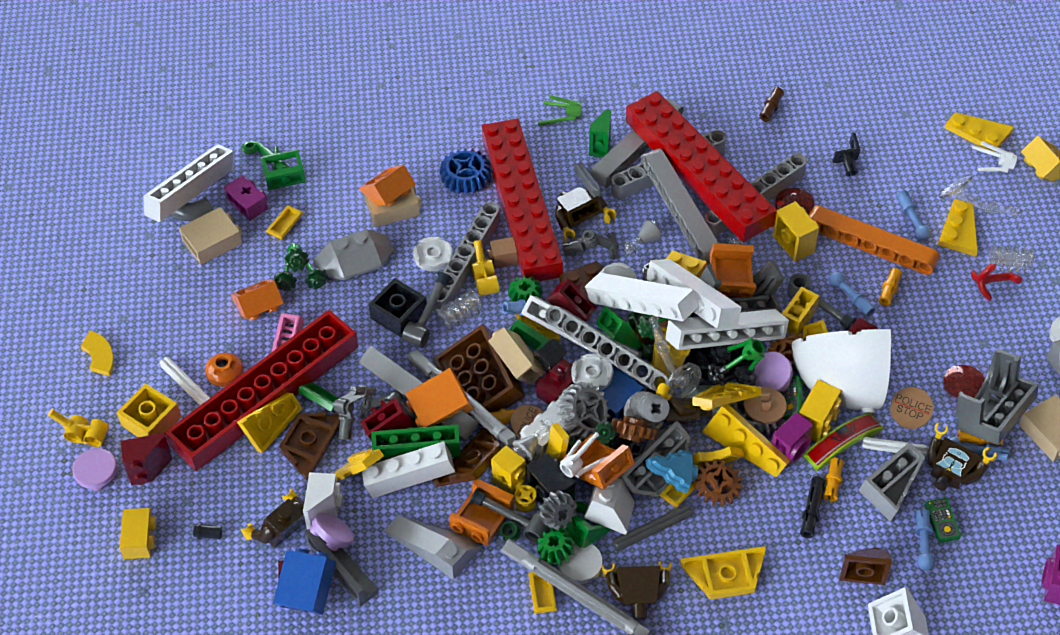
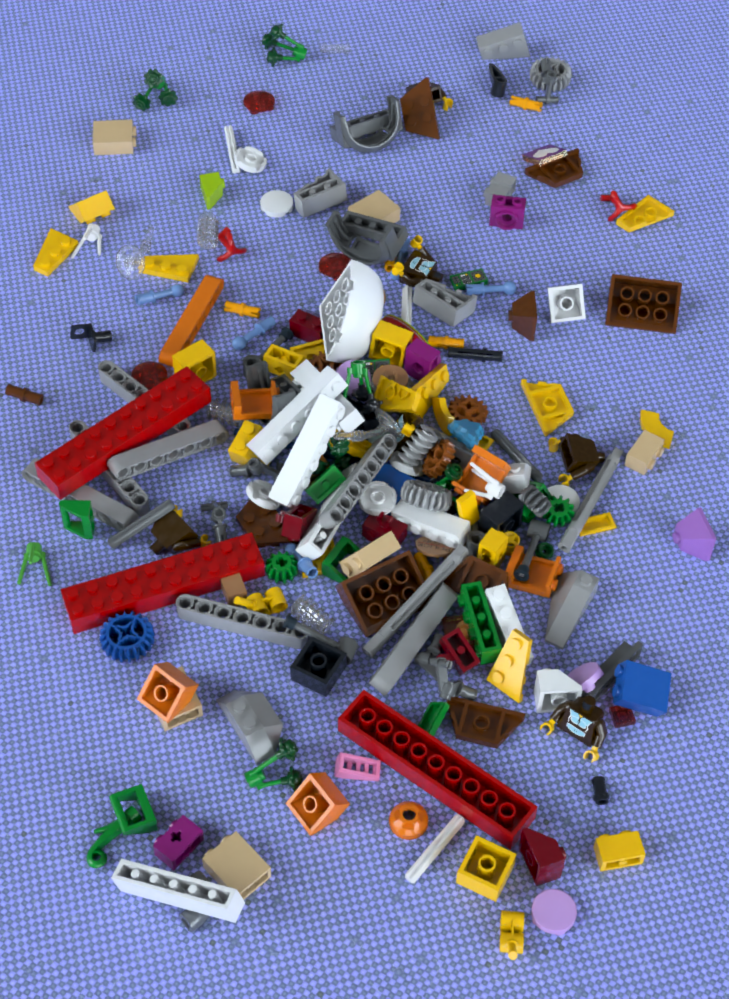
camera: 100 degrees left, 0 degrees up
(100, 353) = (406, 948): yellow tile -> none
(269, 421) = (486, 763): yellow wing -> none
(284, 222) = (207, 799): yellow tile -> none
(432, 254) = (236, 655): white tile -> none
(438, 399) = (436, 605): orange panel -> none
(527, 446) = (475, 529): piece -> none
(550, 354) = (362, 533): black bracket -> none
(649, 232) = (196, 478): piece -> none

